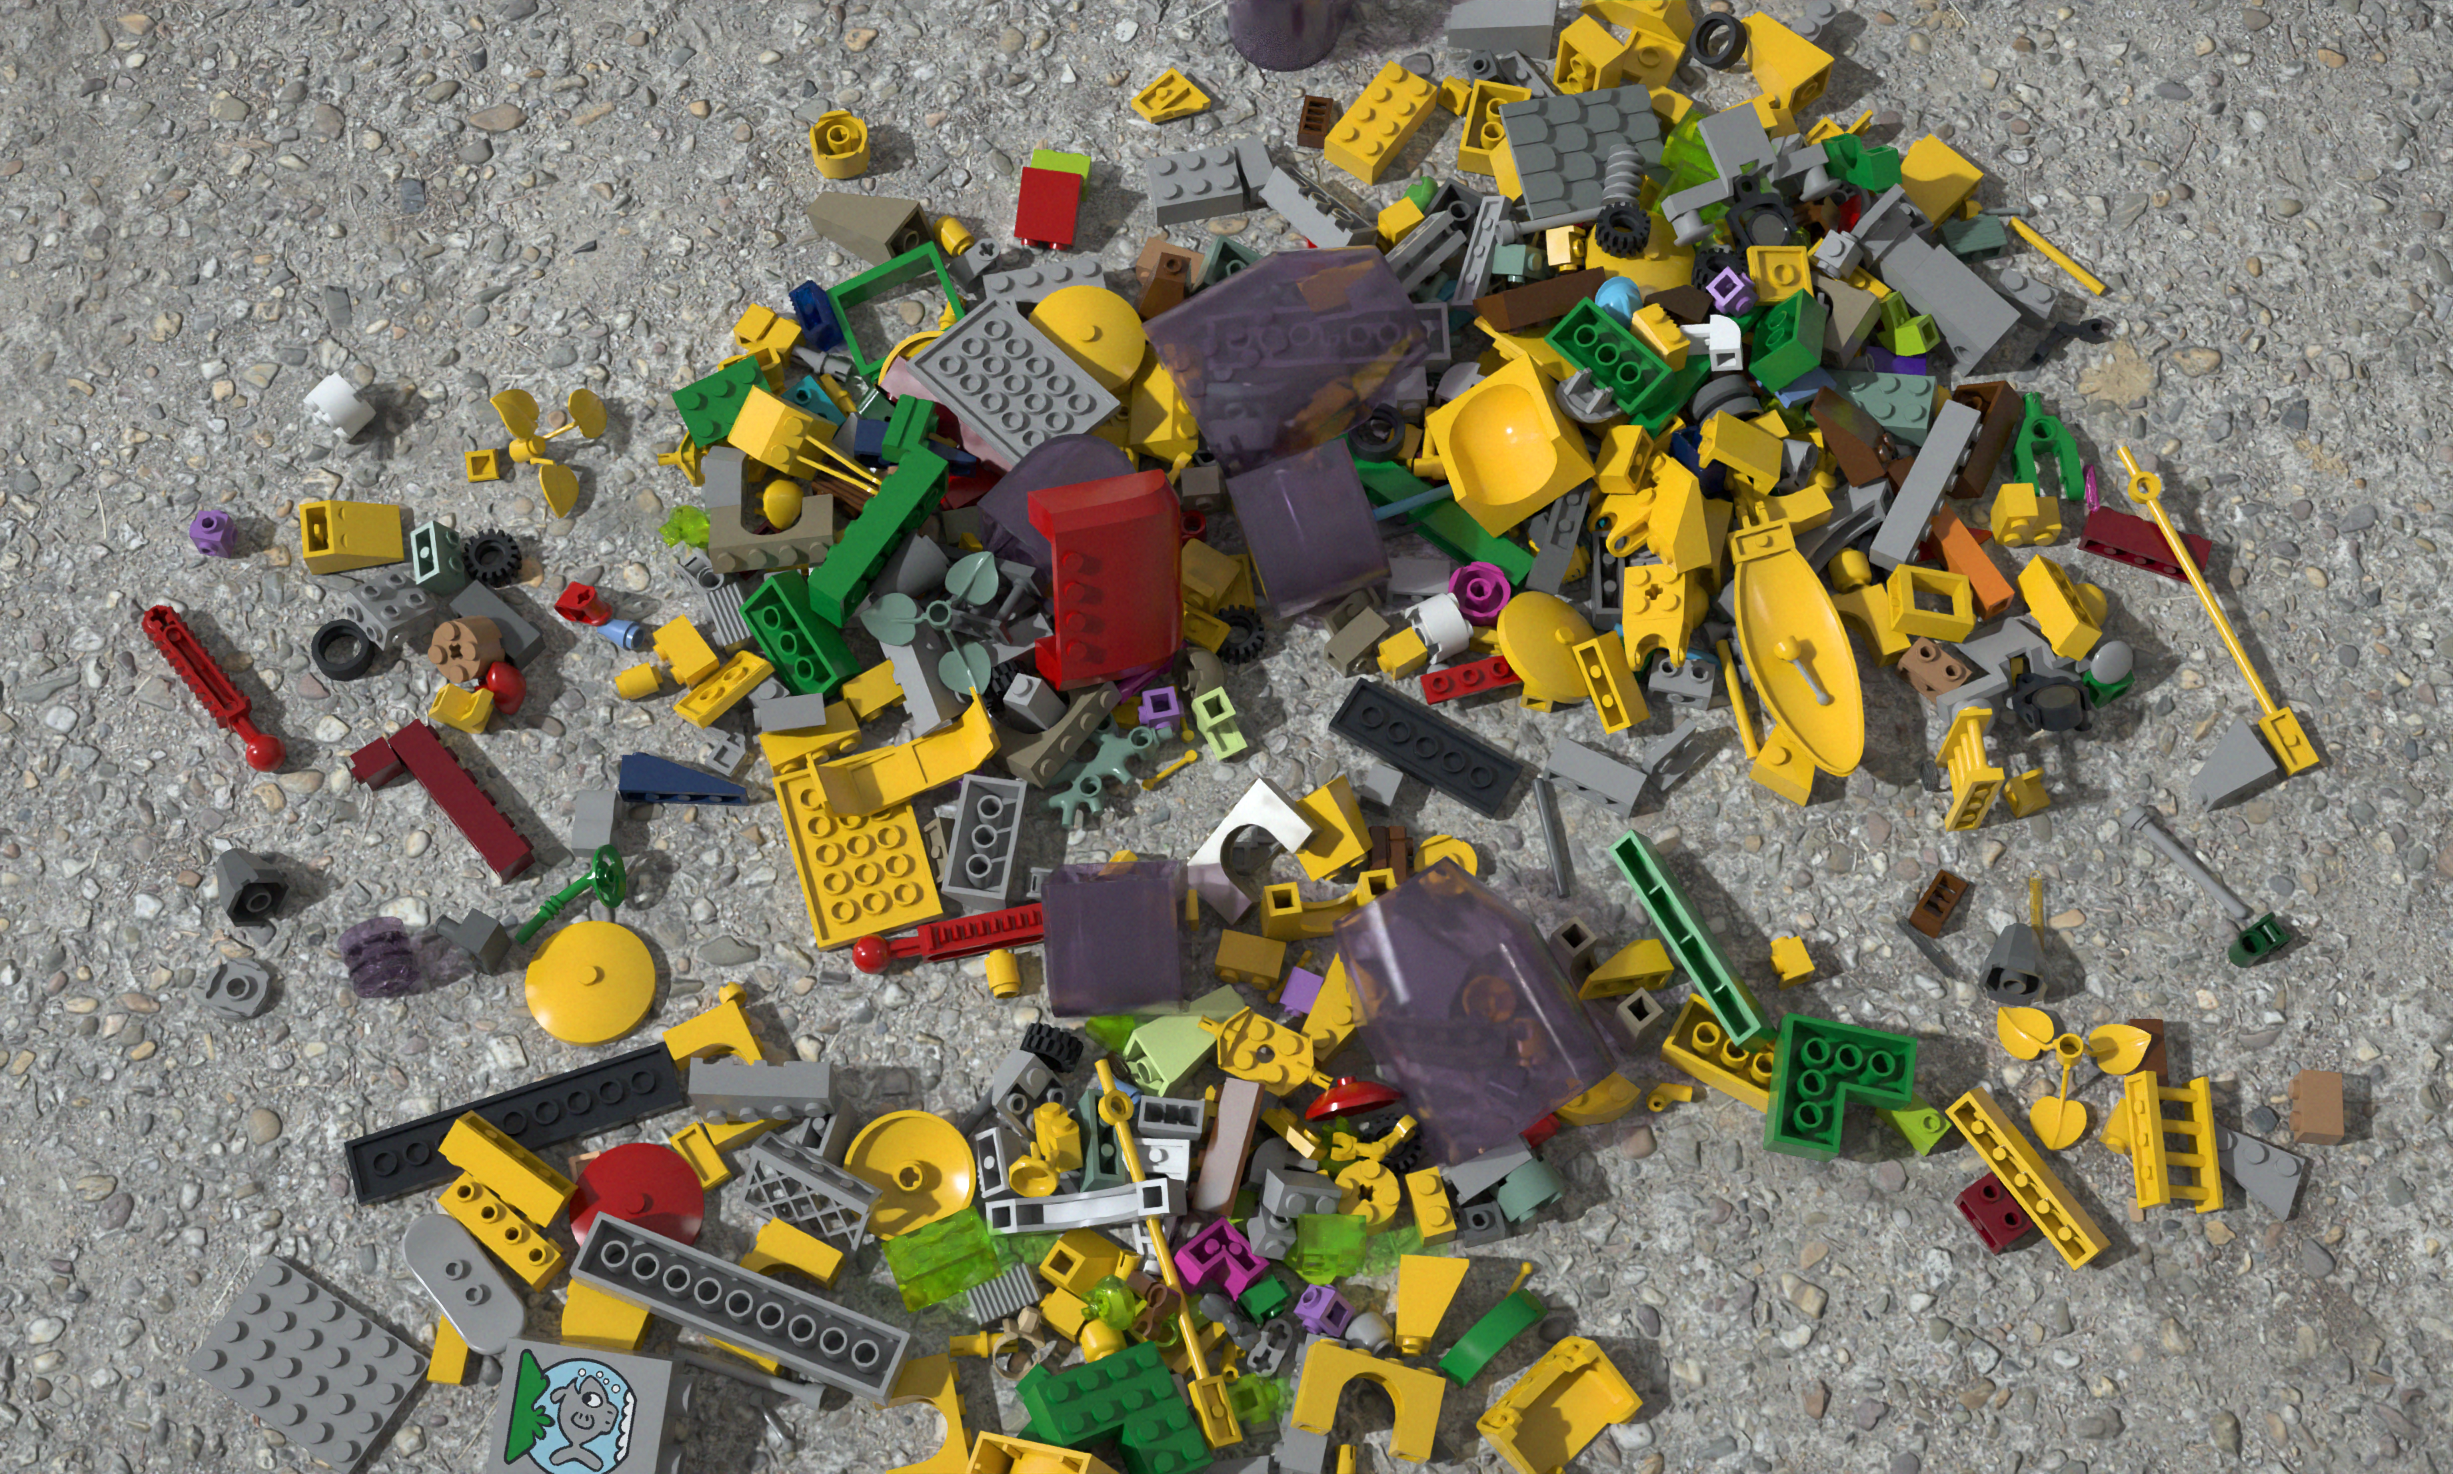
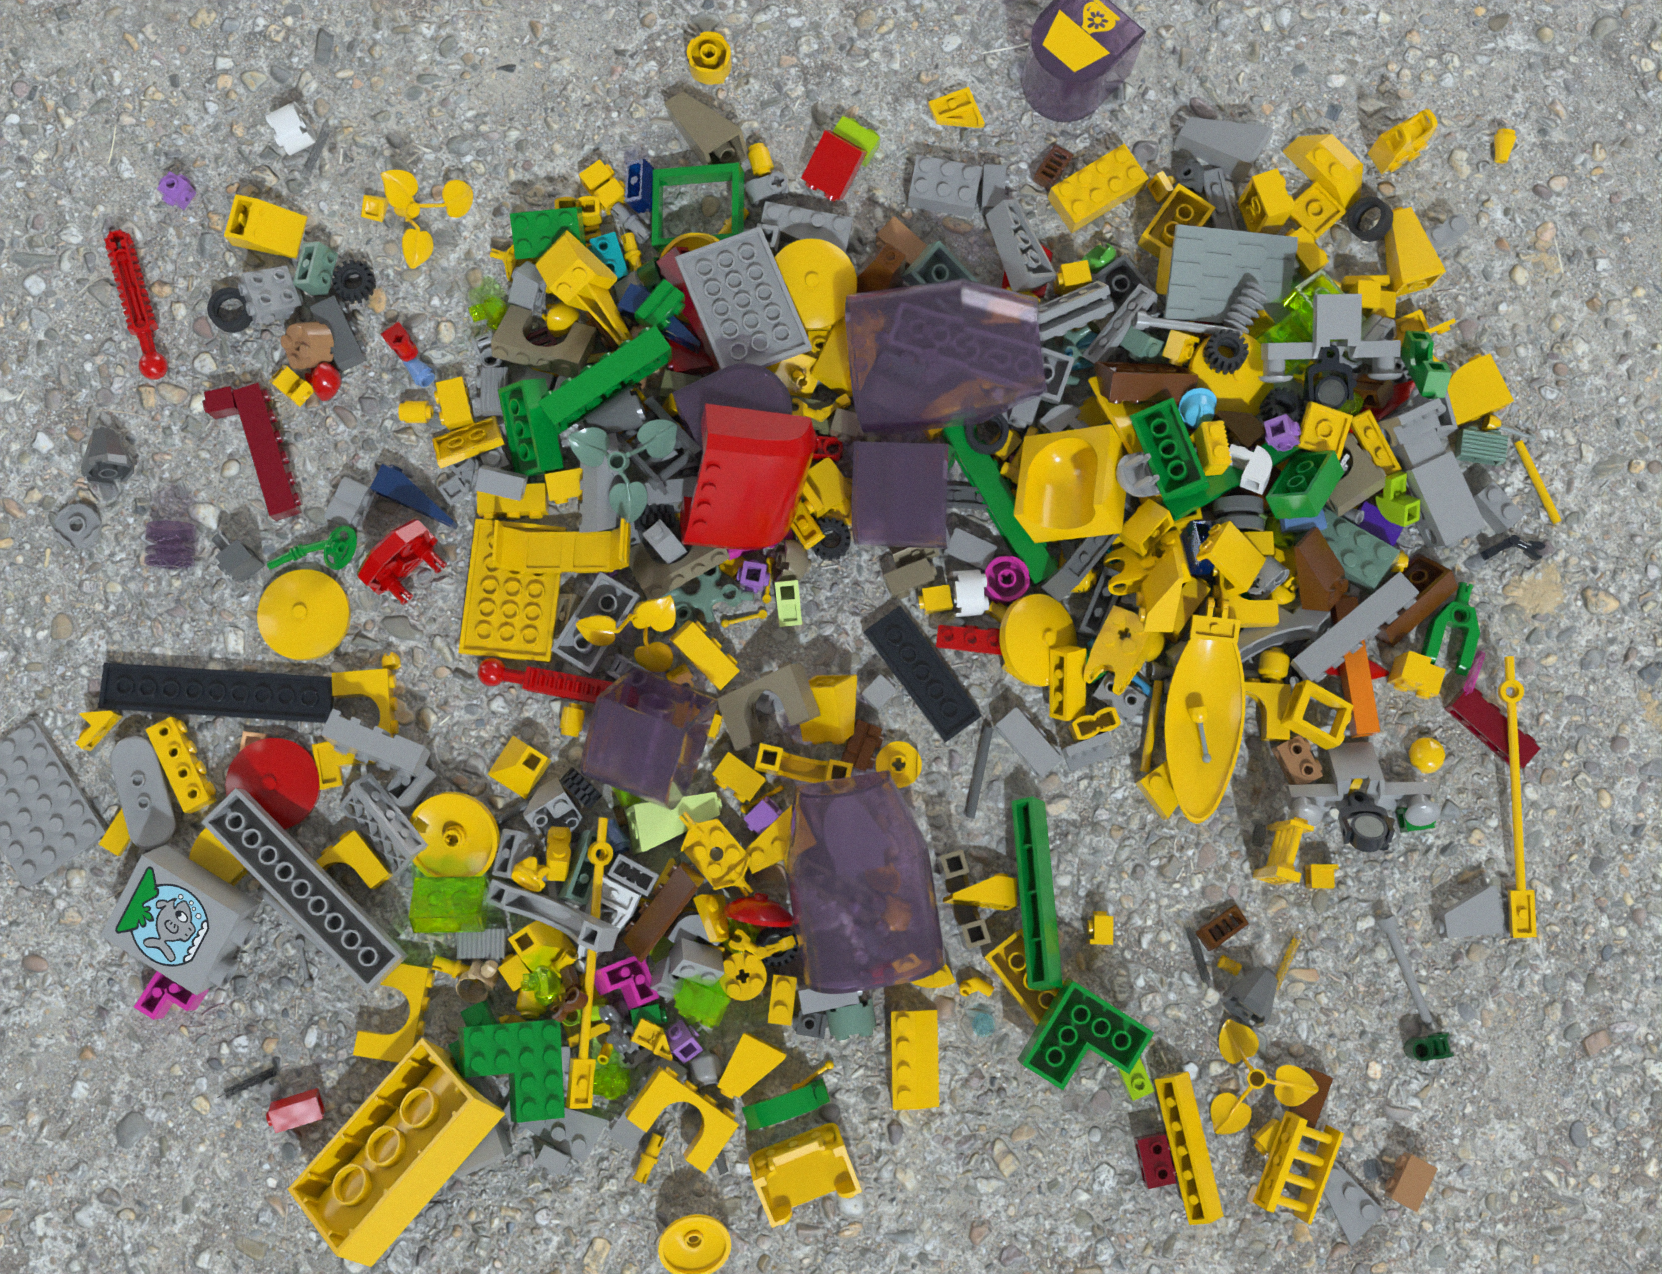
camera: 20 degrees right, 15 degrees up
(369, 1222) = (101, 724): none -> yellow slope
(507, 1169) = (196, 727): yellow brick -> none
(694, 852) = (397, 557): none -> red brick
(959, 1056) = (519, 767): none -> yellow slope
(1061, 779) = (656, 613): none -> yellow plant
(1140, 823) = (705, 653): none -> yellow brick
(1284, 1317) = (652, 1037): none -> yellow slope
(1412, 502) = (984, 496): dark azure bar -> none
(1630, 1214) = (914, 1059): none -> yellow slope
(1665, 719) = (1088, 725): none -> yellow brick
(1700, 1138) = (983, 1025): none -> clear light blue plate
(1838, 254) = (1373, 431): light grey brick -> none
(1959, 942) = (1222, 962): none -> yellow piece
(2058, 608) = (1404, 757): yellow brick -> none

